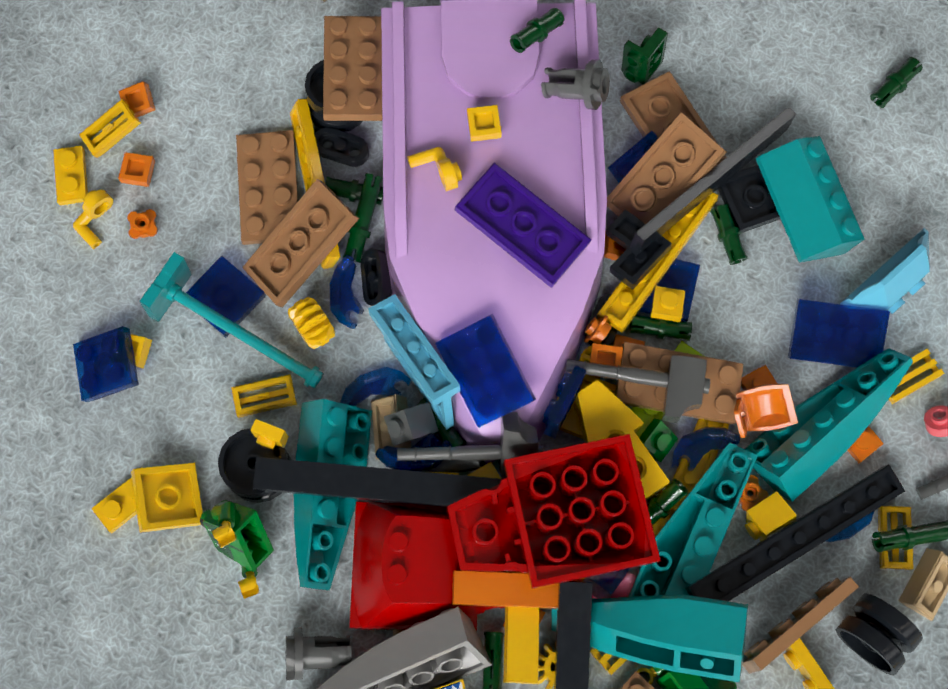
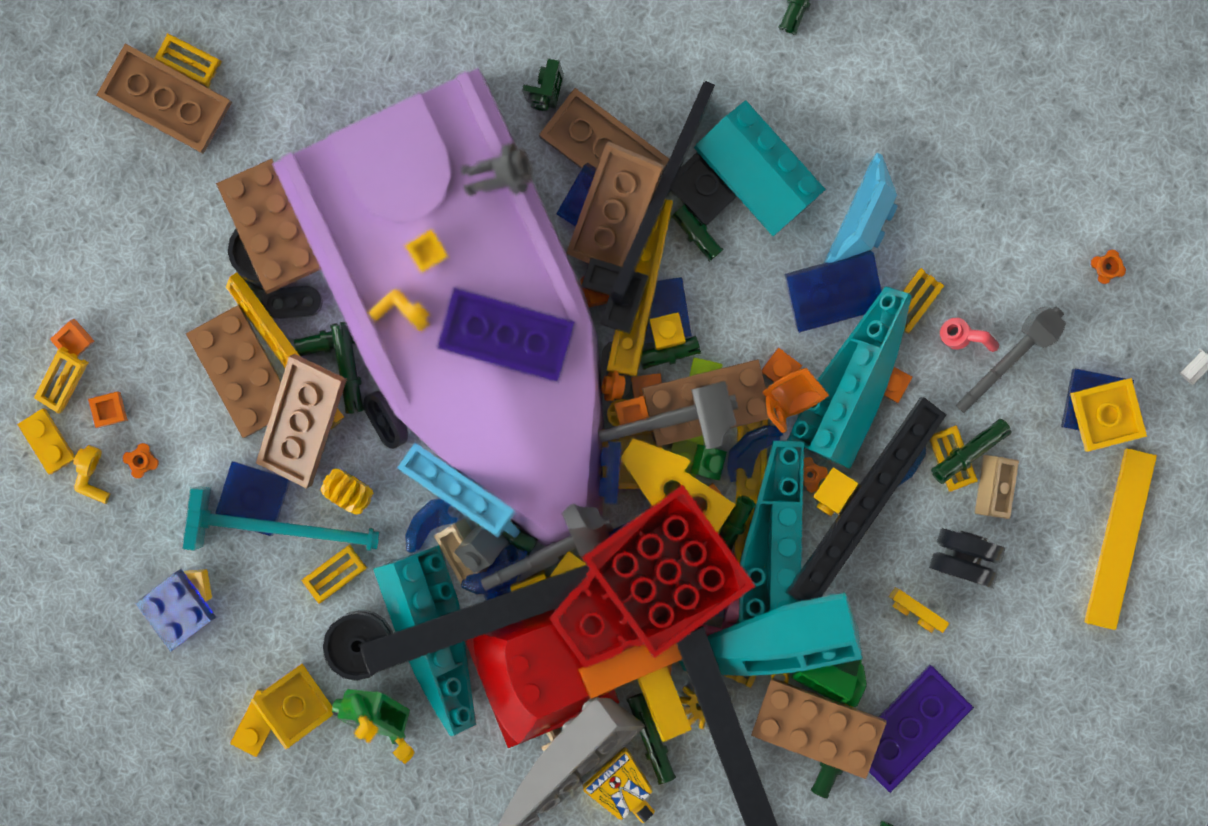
camera: 25 degrees left, 15 degrees up
(269, 435) = (361, 620): yellow plate -> none
(314, 653) = (488, 783): dark grey piece -> none
(341, 293) = (361, 449): clear blue piece -> none
(485, 370) = (530, 484): clear blue plate -> none
(537, 30) = (435, 131): dark green pin -> none
(806, 616) = (900, 570): medium nougat plate -> none

